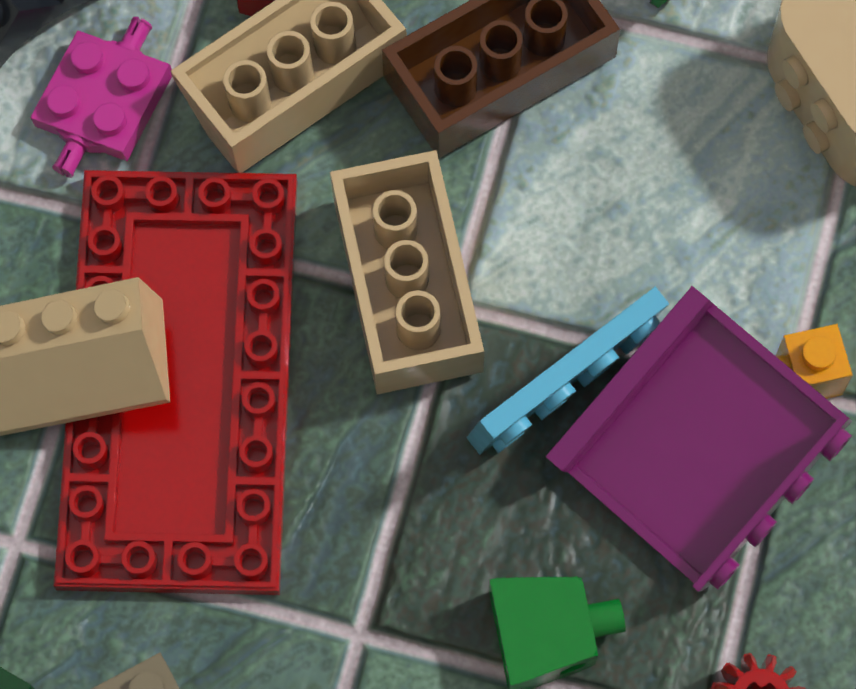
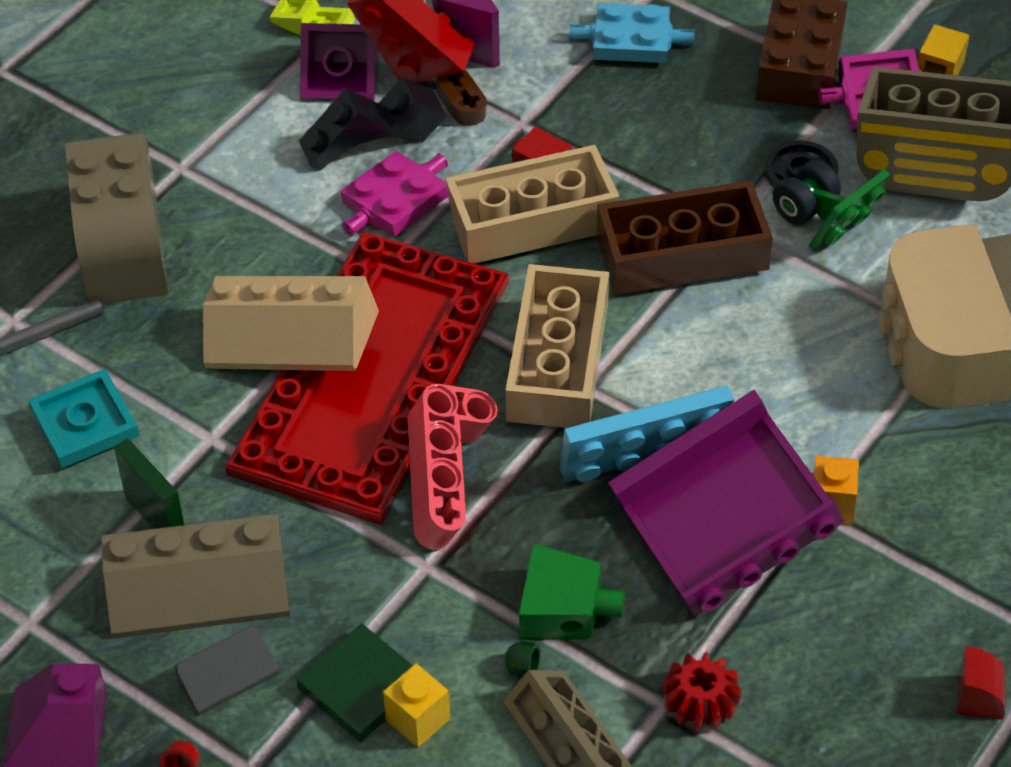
camera: 20 degrees right, 20 degrees down
(336, 498) = (436, 428): none -> coral beam

